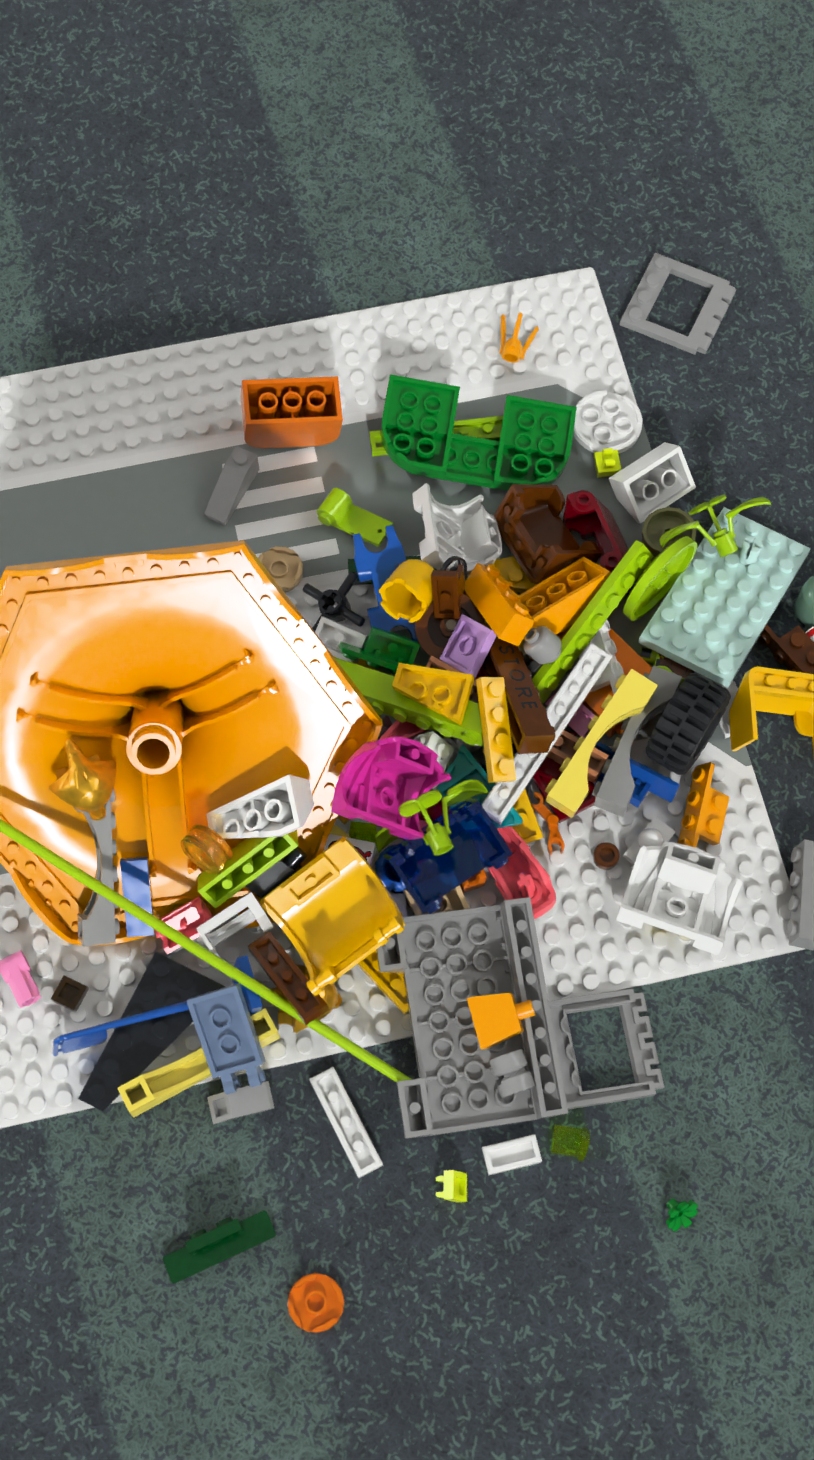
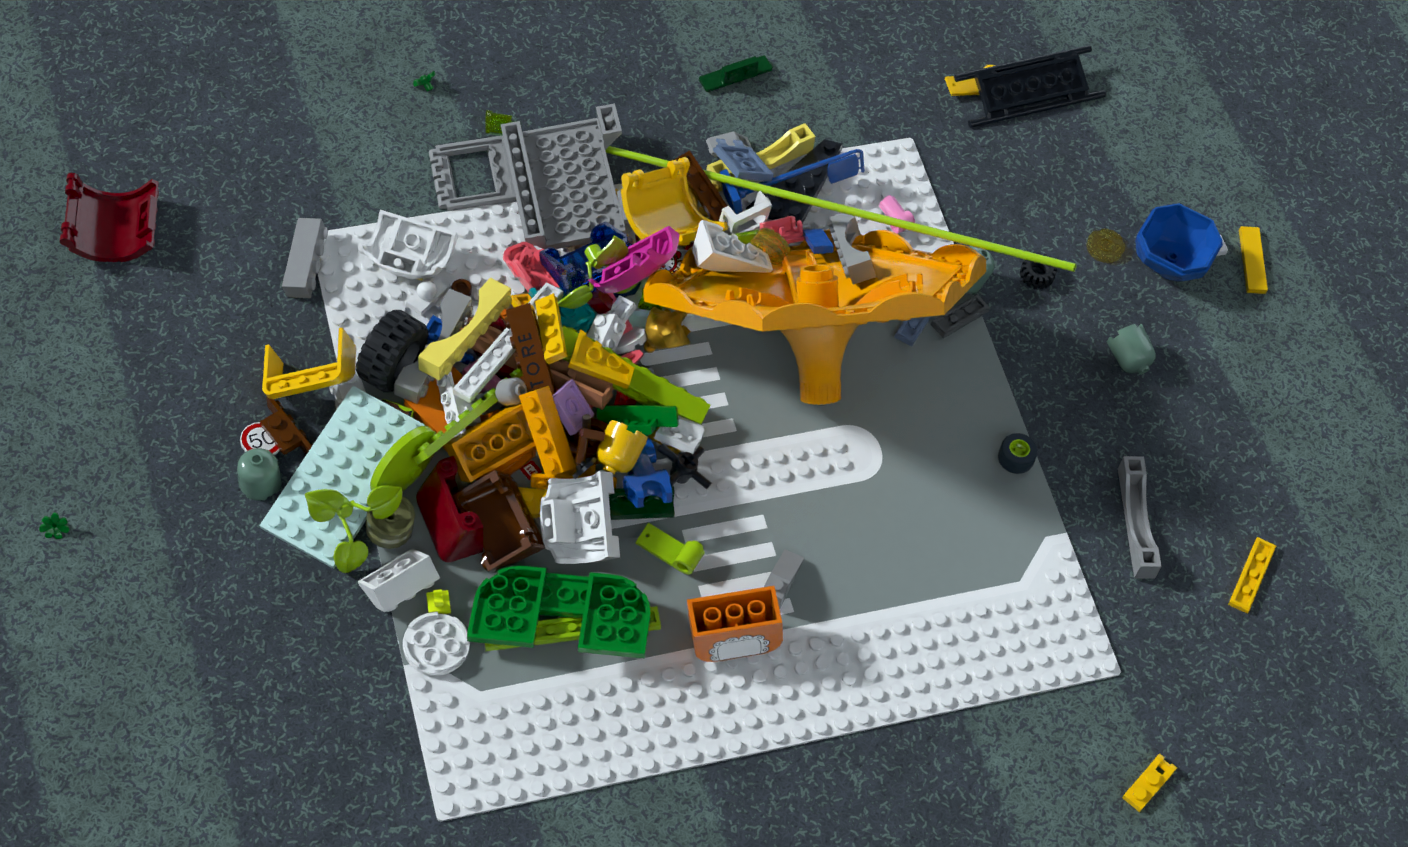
camera: 170 degrees right, 10 degrees down
(69, 993) = (860, 202): dark brown plate -> none
(86, 782) = (865, 248): pearl gold piece -> none
(283, 566) = (733, 509): tan tile -> none
(322, 1308) = (669, 46): orange tile -> none
(346, 1122) = (653, 134): white tile -> none
(454, 1186) = (580, 97): neon yellow tile -> none
(498, 1017) = (550, 170): light orange torso -> none
(511, 1154) = (539, 117): white tile -> none
(512, 349) = (522, 714): light orange plant -> none
(512, 1073) = (539, 142): light grey wheel -> none
(649, 289) = (379, 795): light grey hinge -> none
(704, 809) = (384, 302): light orange bracket -> none

